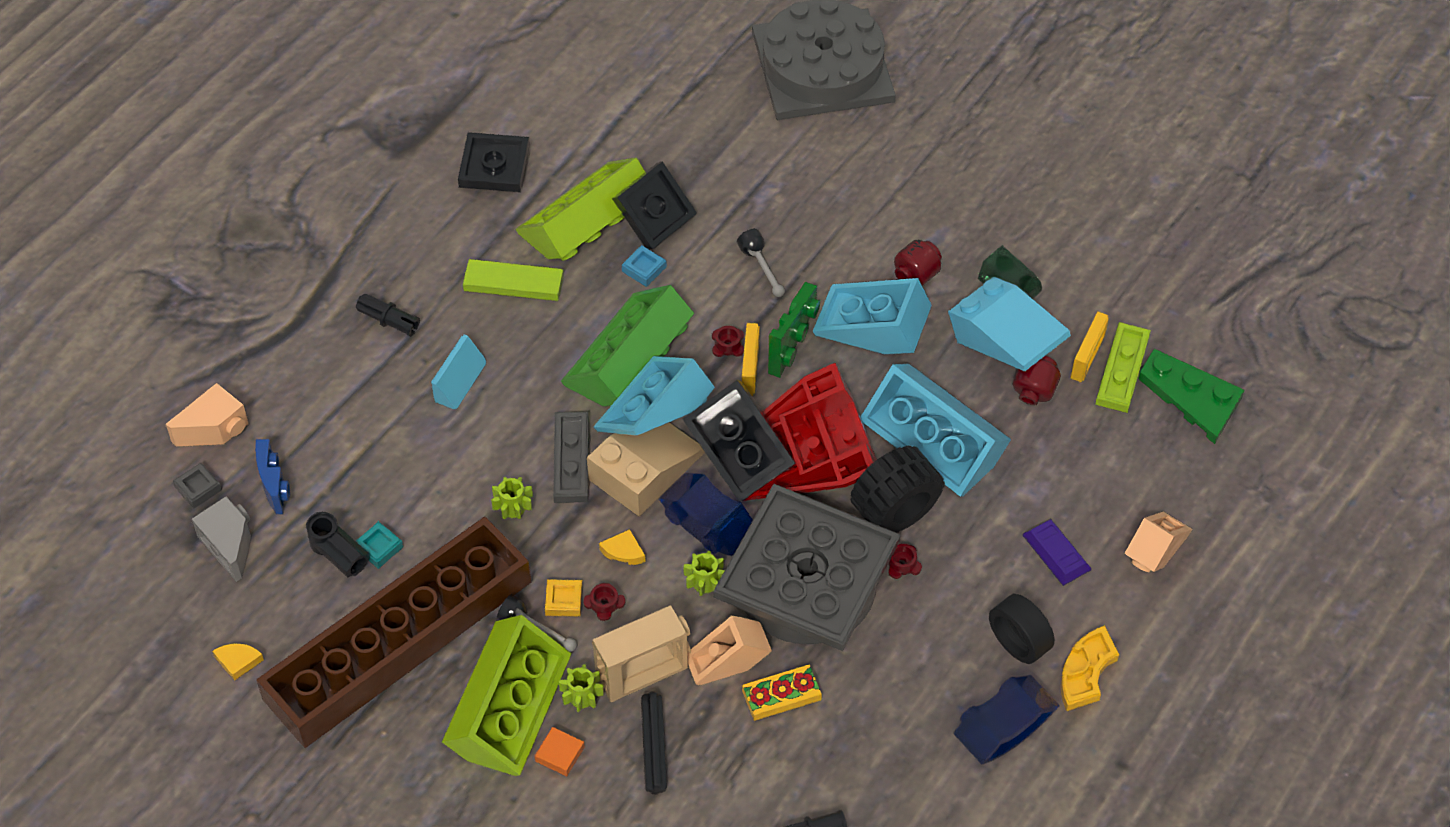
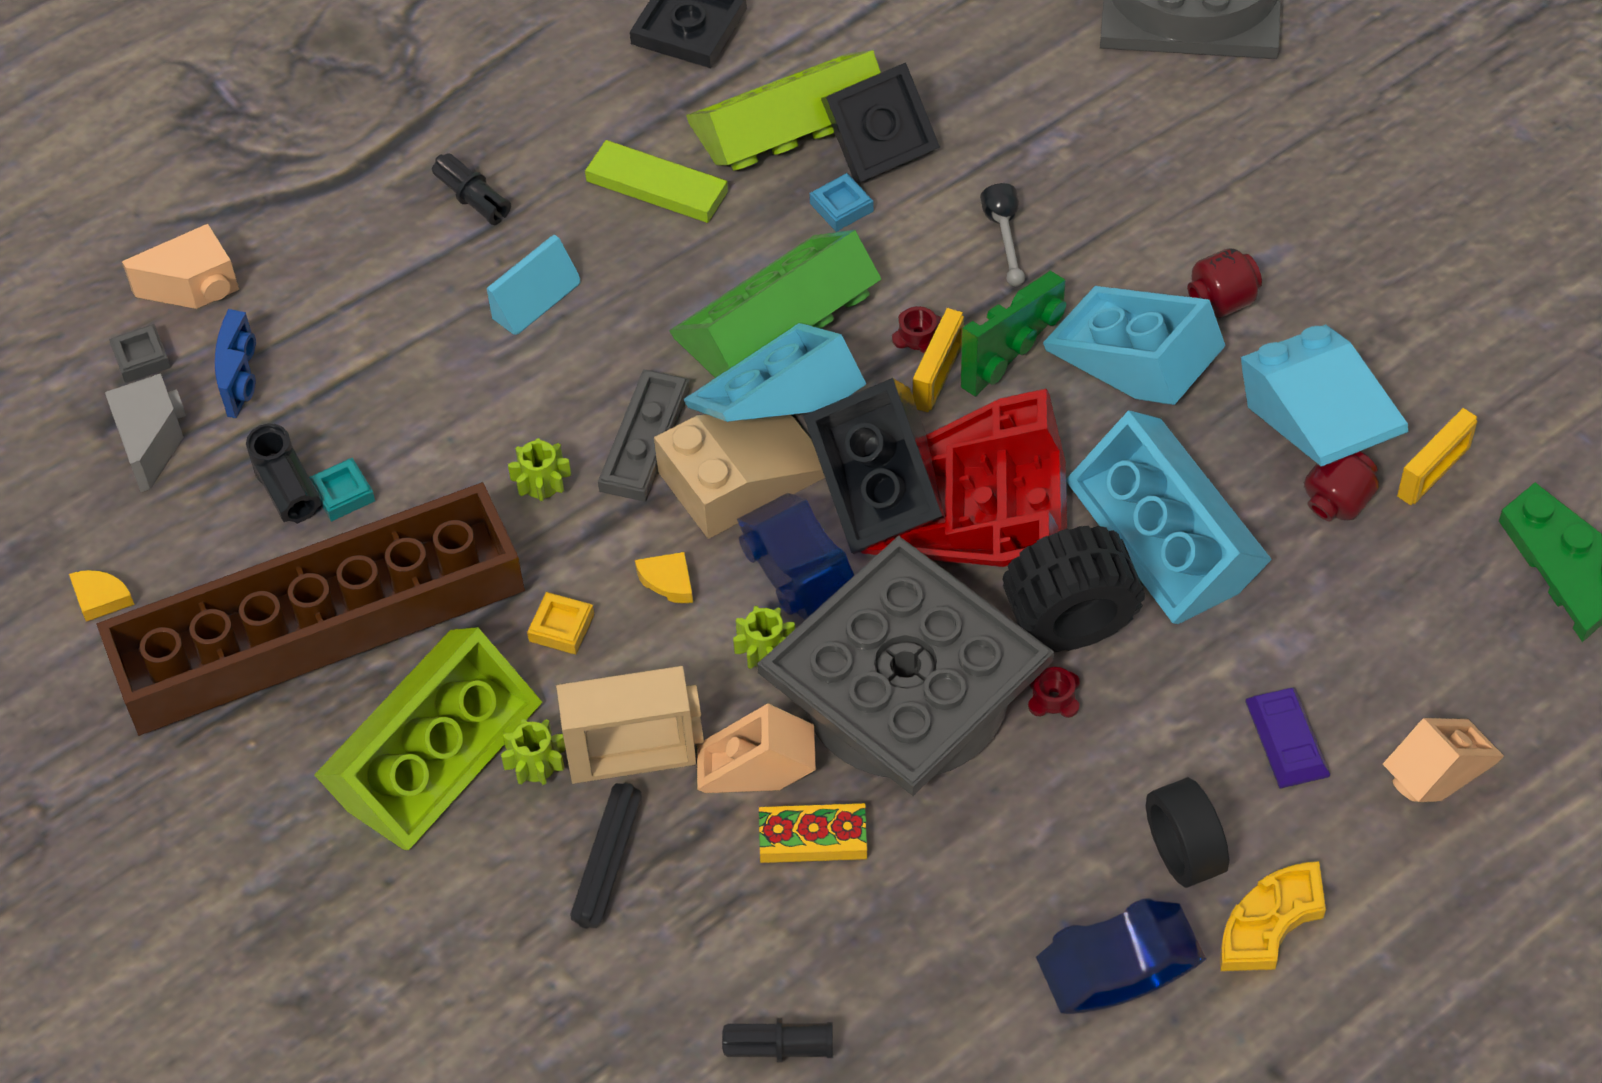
camera: 20 degrees right, 0 degrees up
(514, 606) = (490, 621): hinge -> none
(559, 751) = (473, 832): orange tile -> none
(604, 592) = (613, 629): dark red plate -> none
(1007, 267) = (1358, 325): clear green leg -> none
(1123, 367) = (1479, 498): lime tile -> none

